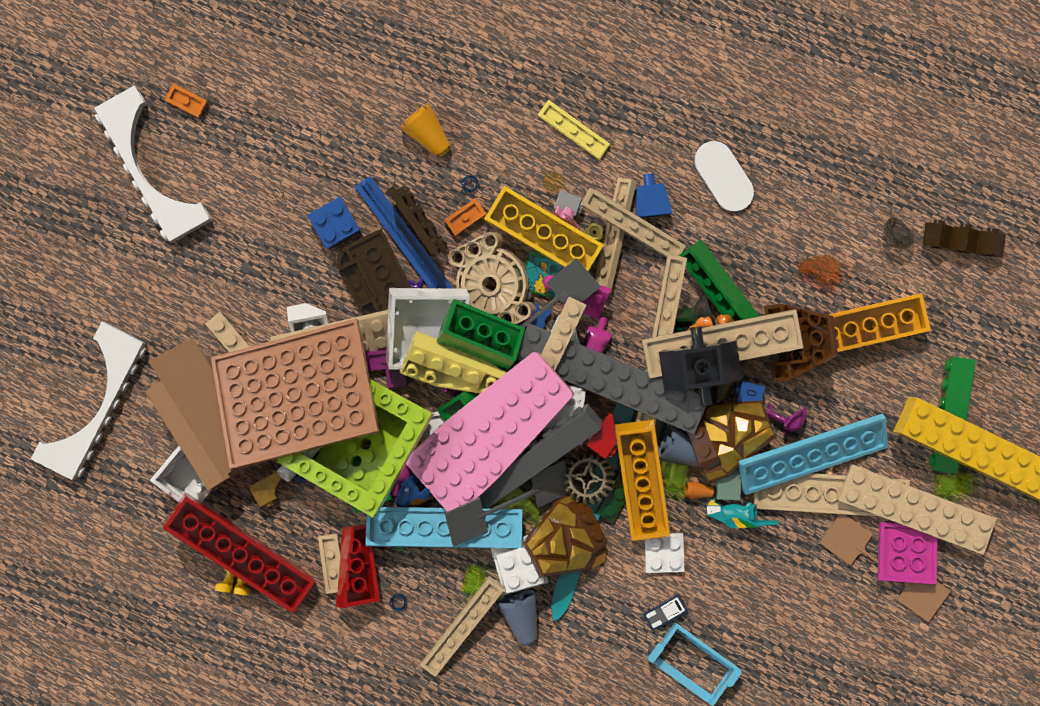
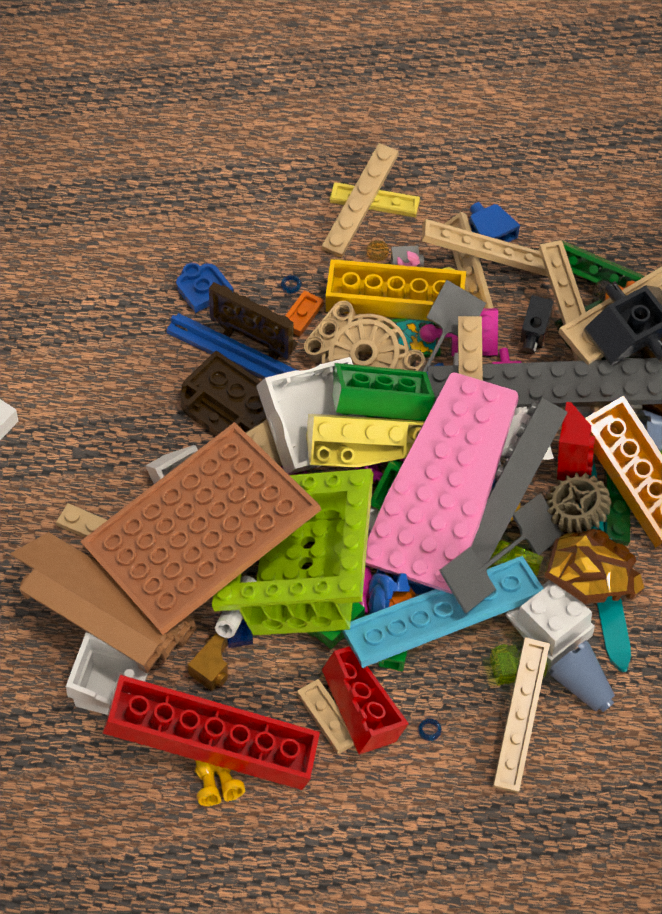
camera: 25 degrees left, 30 degrees down
(334, 223) = (160, 367): blue brick -> none
(399, 157) = (195, 283): none -> blue plate
(427, 131) = (220, 247): light orange cone -> none
(559, 129) = (360, 200): none -> tan plate
(643, 305) = (536, 323): none -> black torso
(724, 176) = (552, 184): white tile -> none

